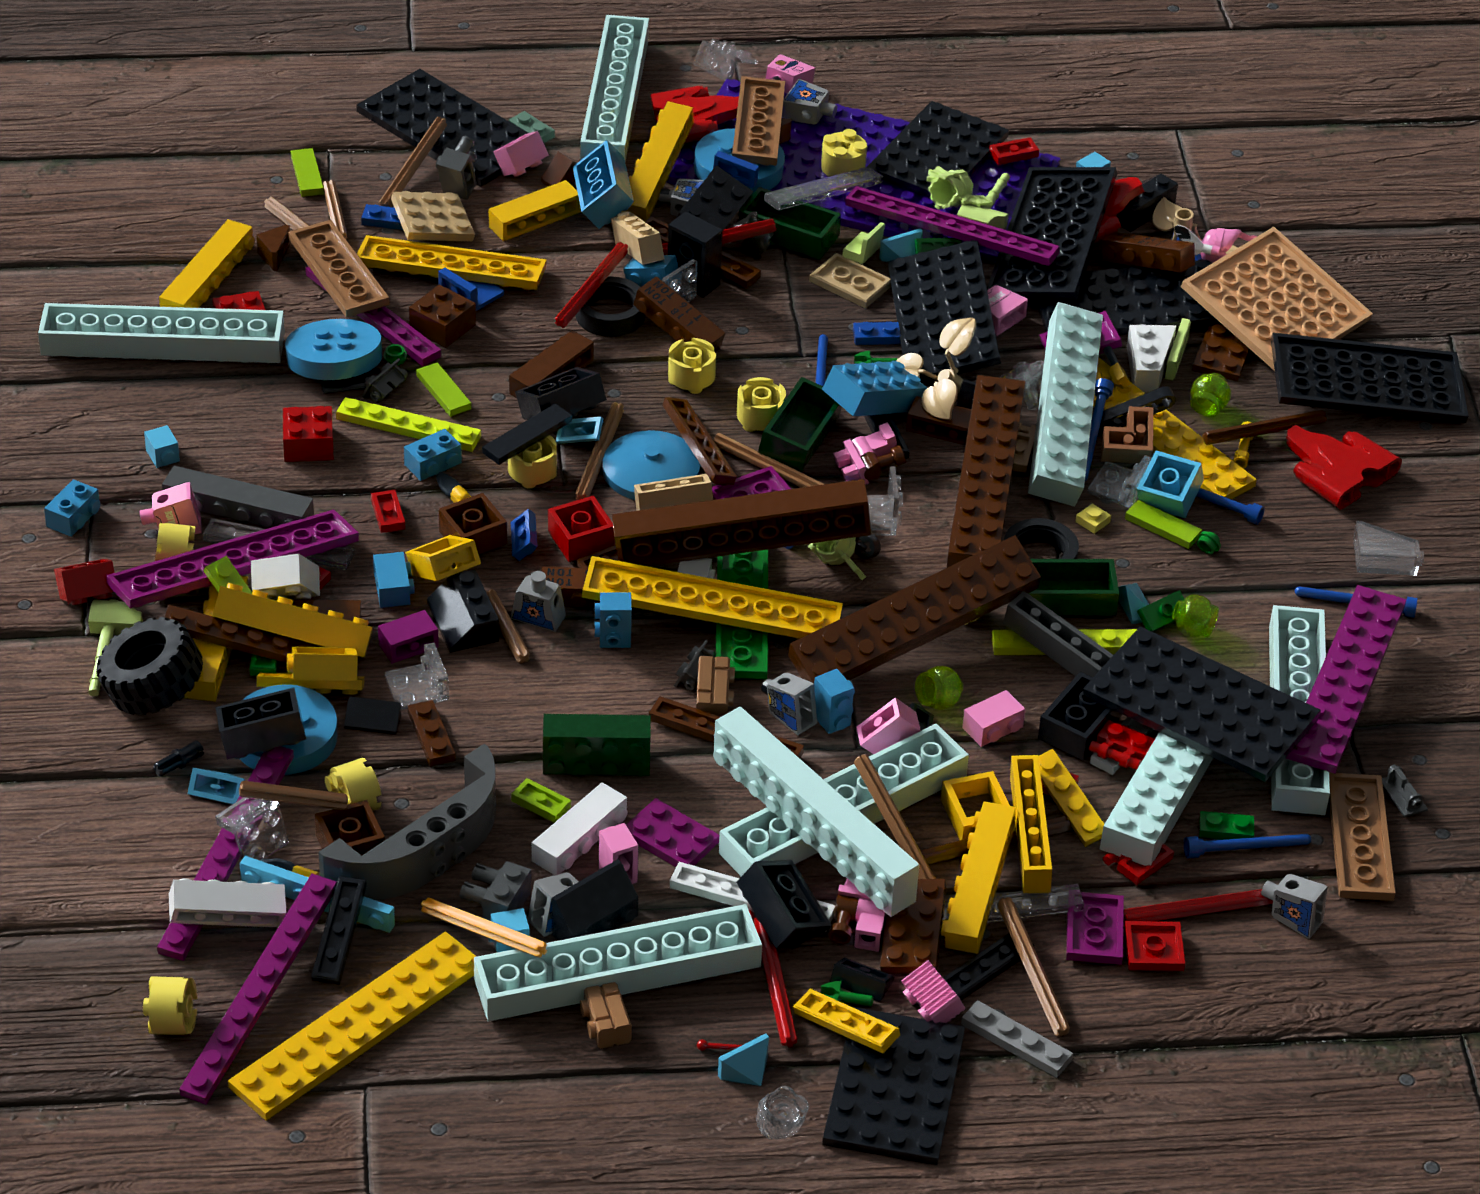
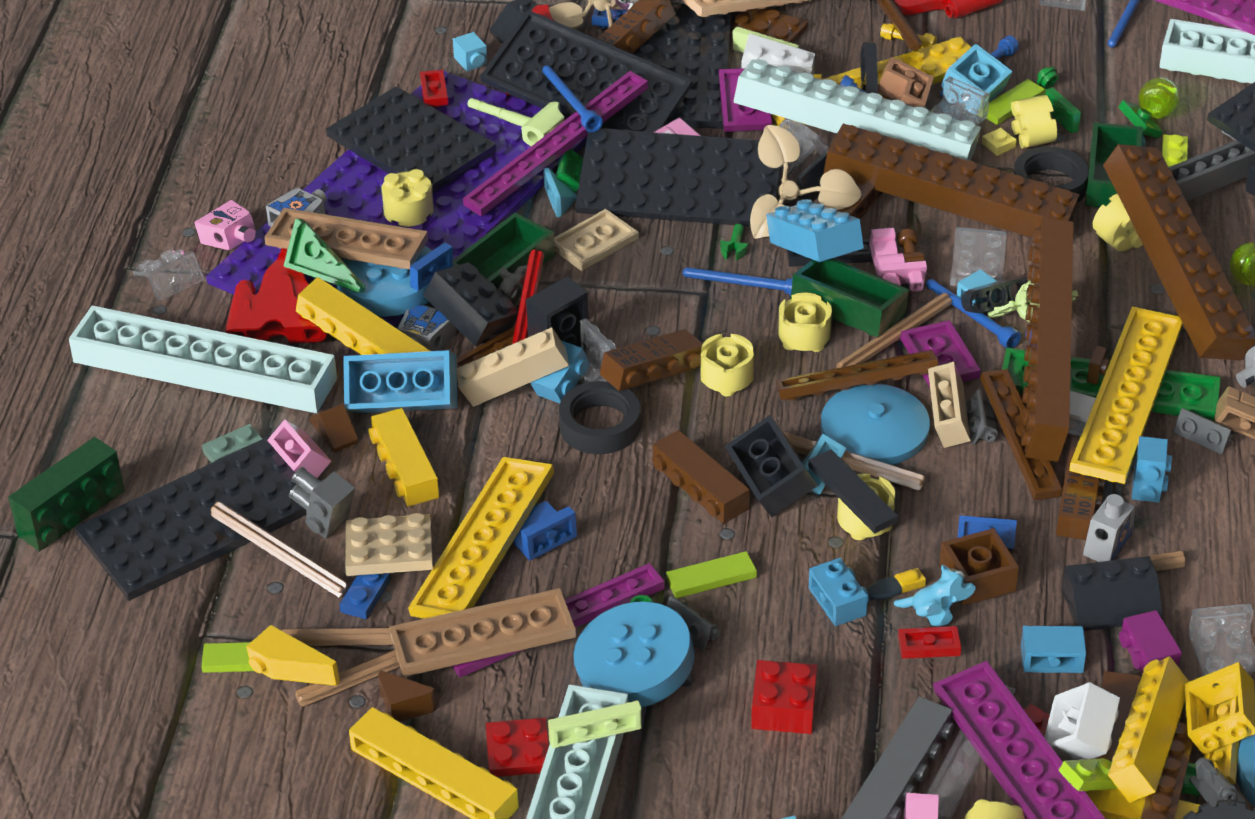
camera: 75 degrees left, 0 degrees up
(229, 666) = (1213, 784): none -> dark grey hinge
(233, 320) = (594, 724): none -> yellowish green tile
(296, 178) = (290, 659): none -> yellow slope
(404, 422) = (766, 614): neon yellow plate -> none
(427, 503) = (937, 598): none -> medium azure animal
(436, 558) = (1051, 608): yellow window -> none
(441, 51) = (66, 493): none -> dark green piece
(442, 315) = (586, 554): reddish brown brick -> none
(580, 528) = (992, 481): red brick -> none
(591, 285) = (580, 416): red axle -> none
(721, 110) = (313, 257): none -> wing
(746, 576) = (1098, 365): none -> reddish brown plate
(822, 188) = (466, 220): clear tile -> none
(864, 245) = (550, 211): yellowish green panel -> none
(876, 333) = (687, 234): blue plate -> none
(953, 189) = (500, 129): yellowish green helmet -> none
(974, 231) = (589, 119): none -> blue piece
(1114, 527) = (1034, 121): none -> light yellow brick
(1154, 554) = (1064, 111): none -> green plate
(1210, 394) = (844, 36): clear neon green piece -> none

